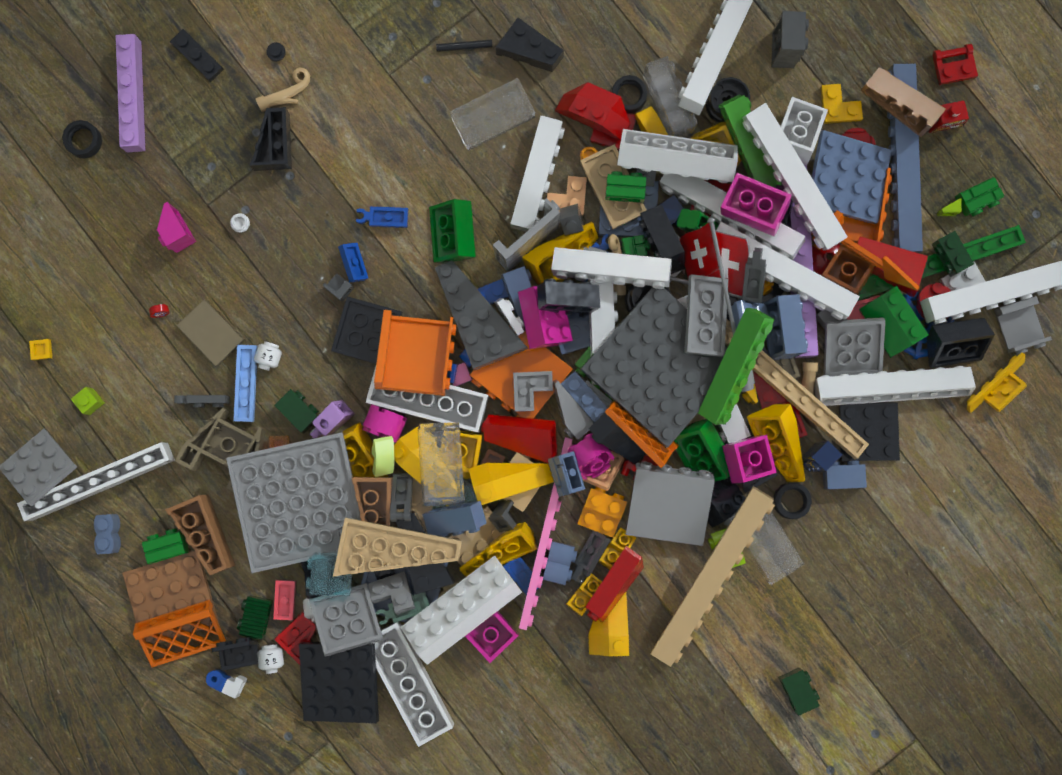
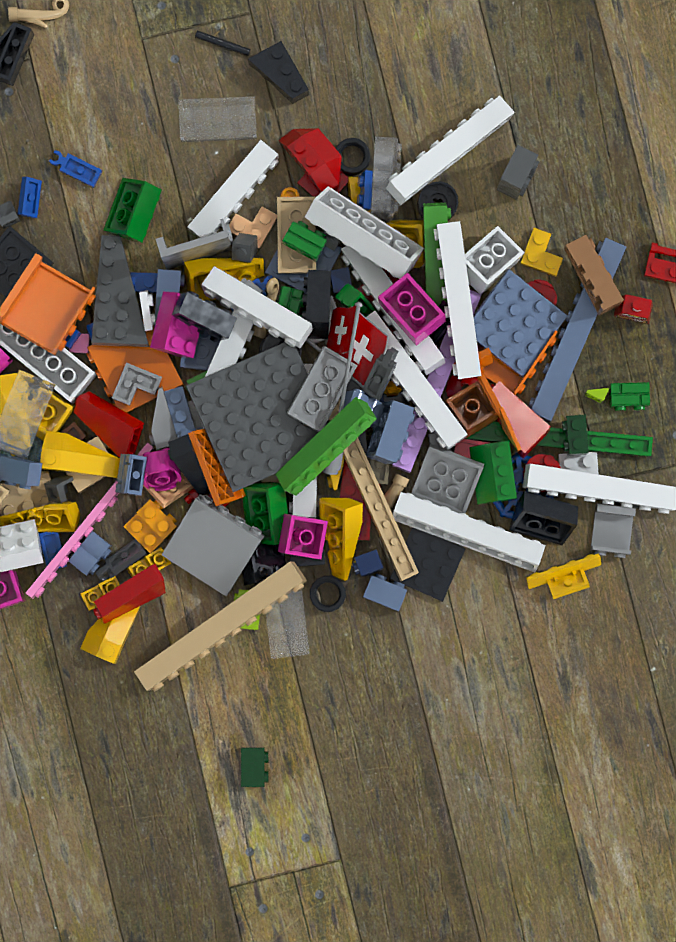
camera: 20 degrees right, 0 degrees up
(657, 116) = (365, 185): none -> blue plate

